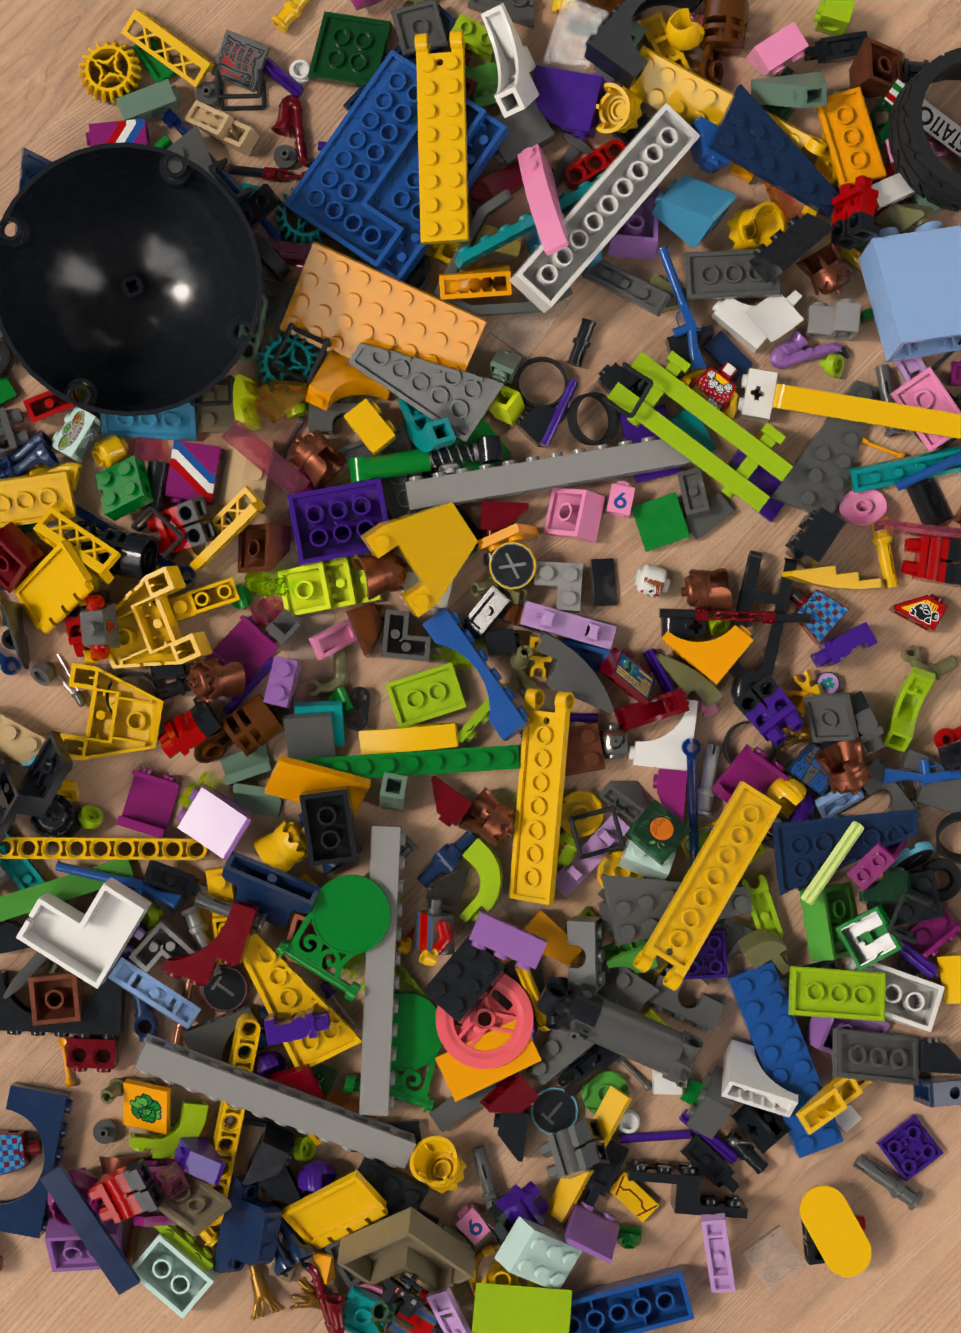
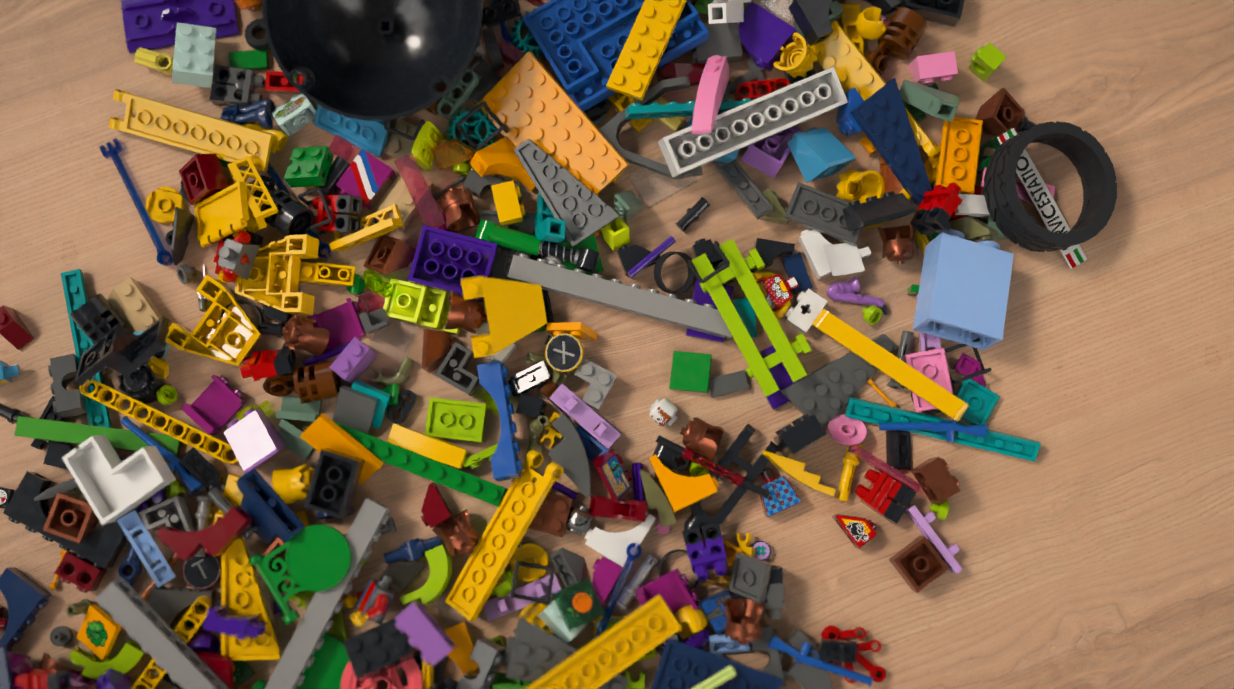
camera: 25 degrees right, 5 degrees down
(110, 450) = (313, 135): yellow head -> none
(333, 639) = (405, 346): bright pink tile -> none
(393, 791) = (395, 480): sand green brick -> none
(480, 282) = (634, 134): light orange arch -> none
(500, 515) = (573, 311): dark red slope -> none
(541, 359) = (648, 211): black tyre -> none
(574, 514) = (629, 336): bright pink slope -> none
(603, 582) = (627, 397): black slope -> none
(620, 499) = (668, 341): bright pink brick -> none
(689, 327) = (771, 263): blue piece -> none
(693, 492) = (724, 361): dark grey plate -> none
(834, 322) = (886, 283): light grey brick -> none
(836, 48) = (976, 86): black hinge -> none
(842, 645) = (782, 527): dark purple hips -> none
(905, 708) = (811, 597): lime arch -> none
(939, 668) = (844, 578): olive piece -> none

